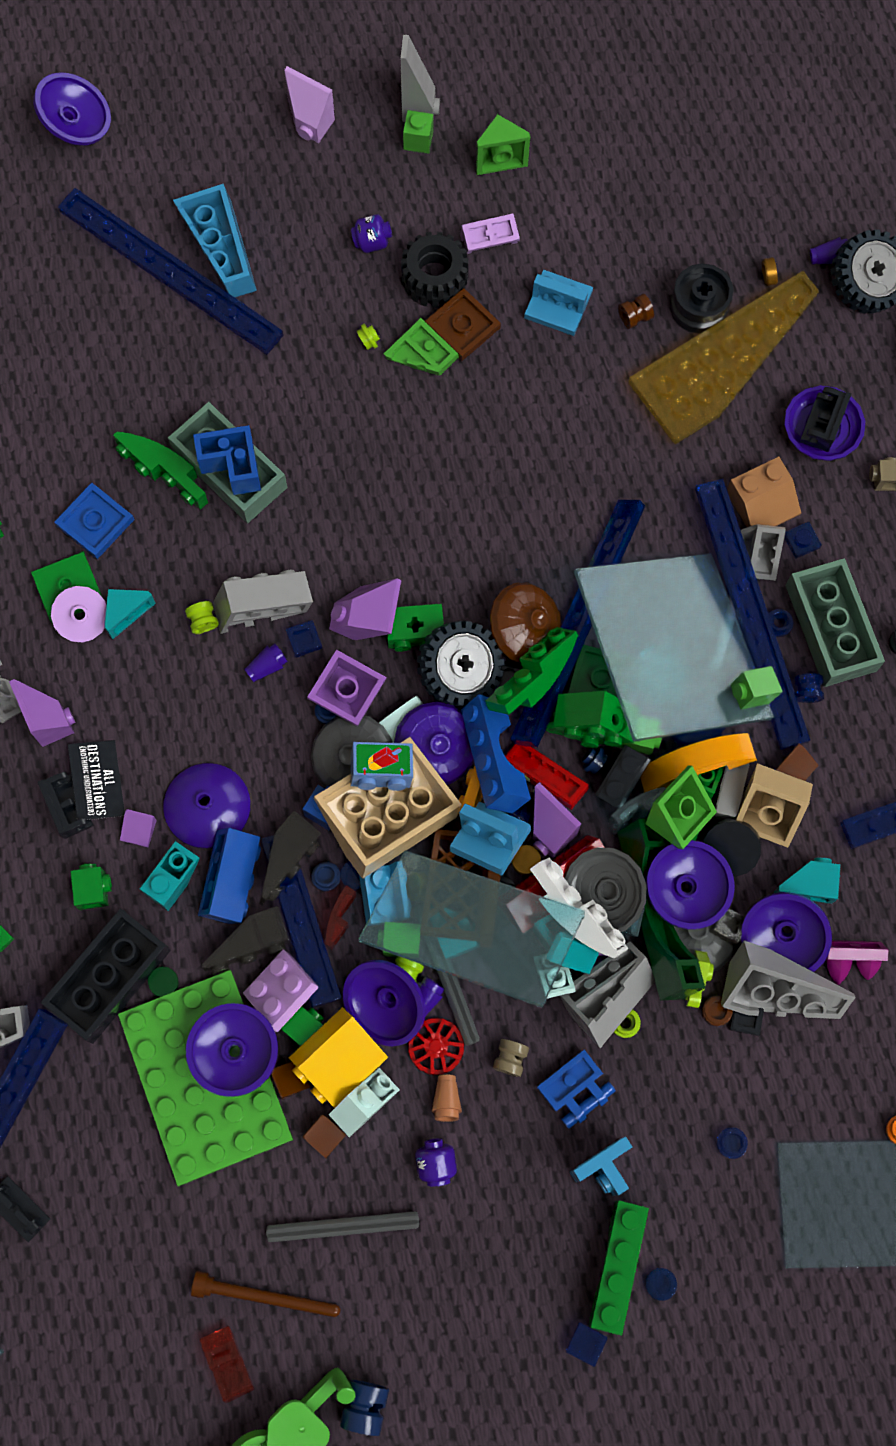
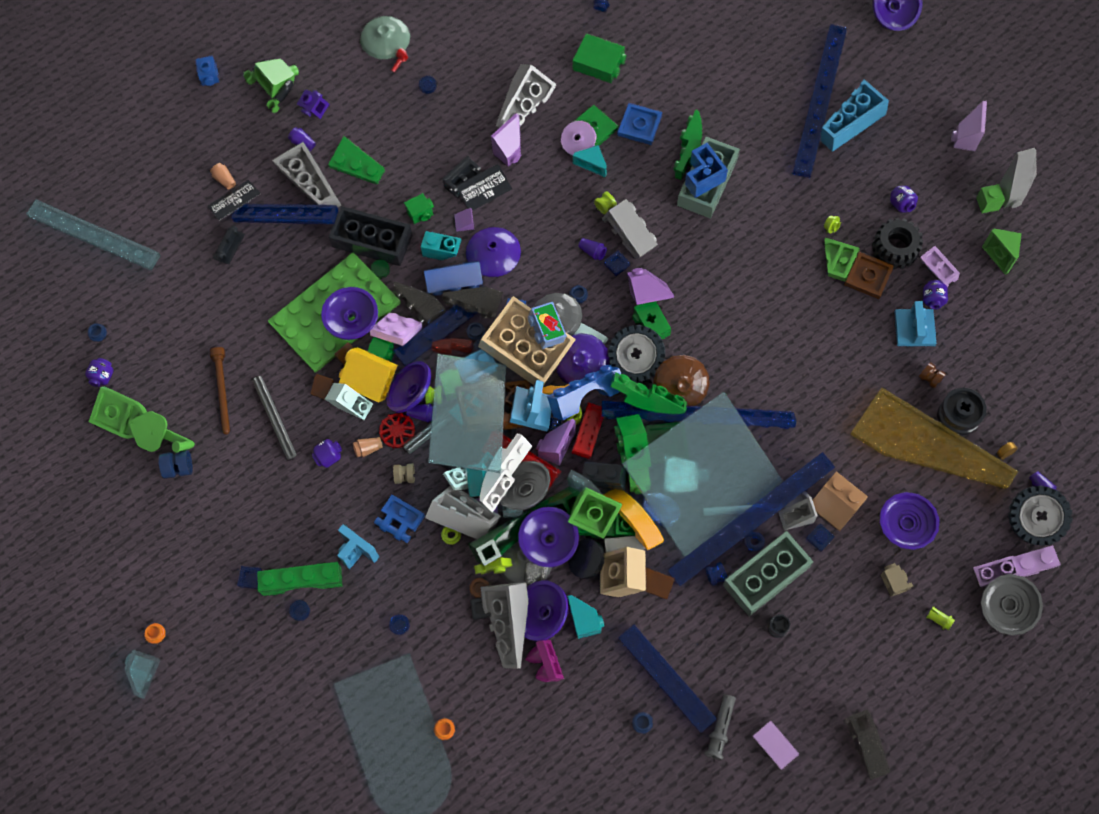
camera: 75 degrees right, 5 degrees down
(227, 1364) = (180, 384): clear red slope -> none
(346, 688) = (592, 293): medium lavender slope -> none
(525, 859) = (533, 438): pearl gold tile -> none
(526, 257) = (935, 294): none -> dark purple head
(594, 760) = (610, 456): dark blue plate -> none
(756, 687) = (696, 533): bright green brick -> none
(825, 418) = (909, 518): black hinge -> none

